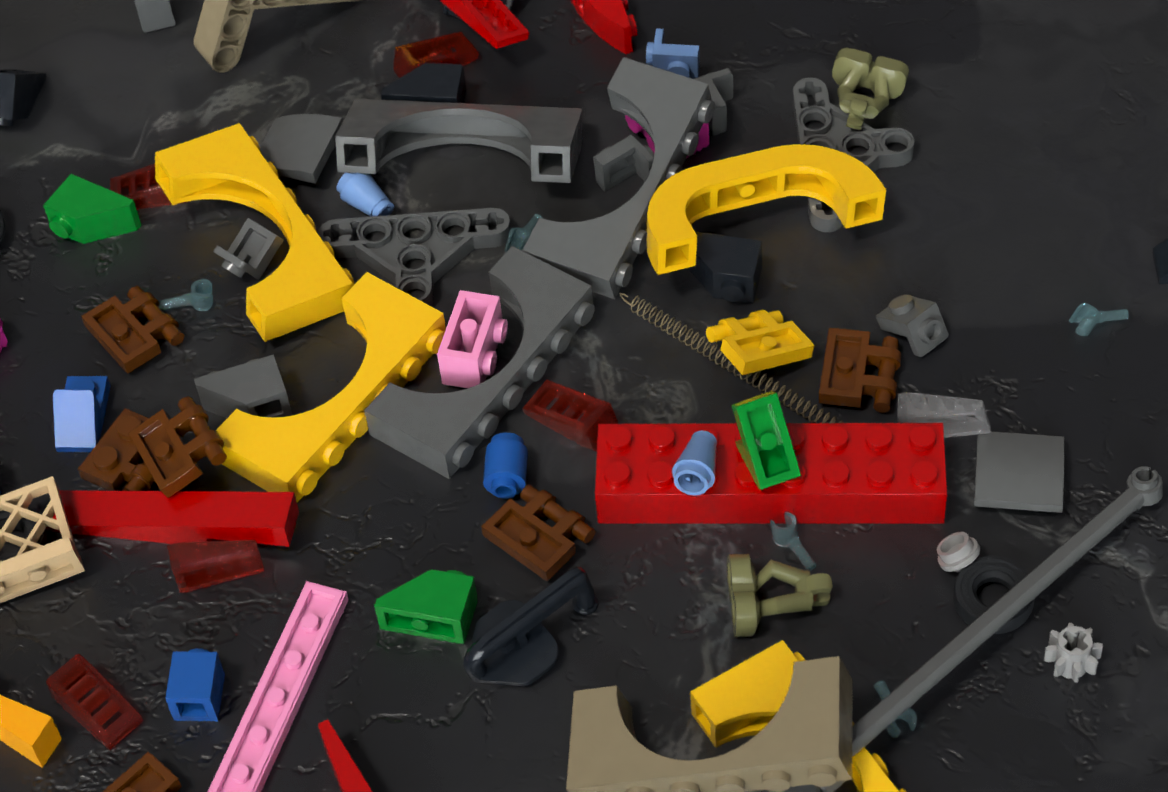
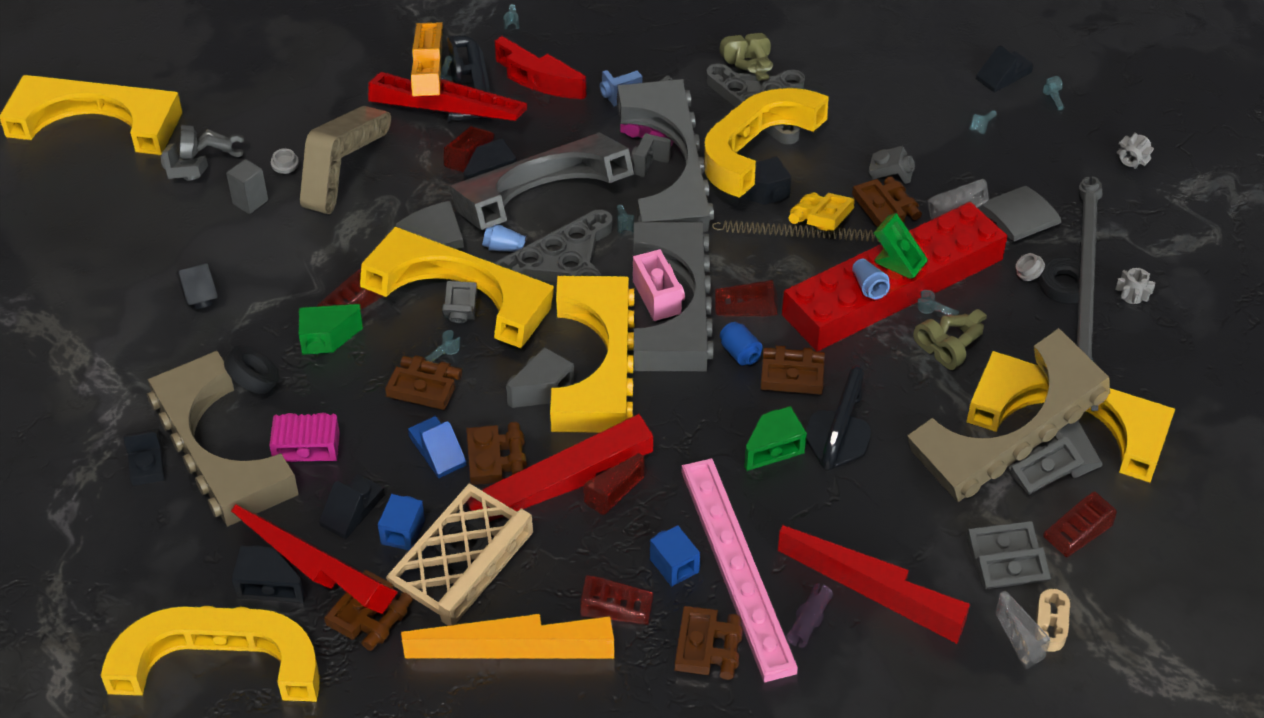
camera: 40 degrees left, 5 degrees down
(167, 454) = (535, 433): reddish brown plate -> none

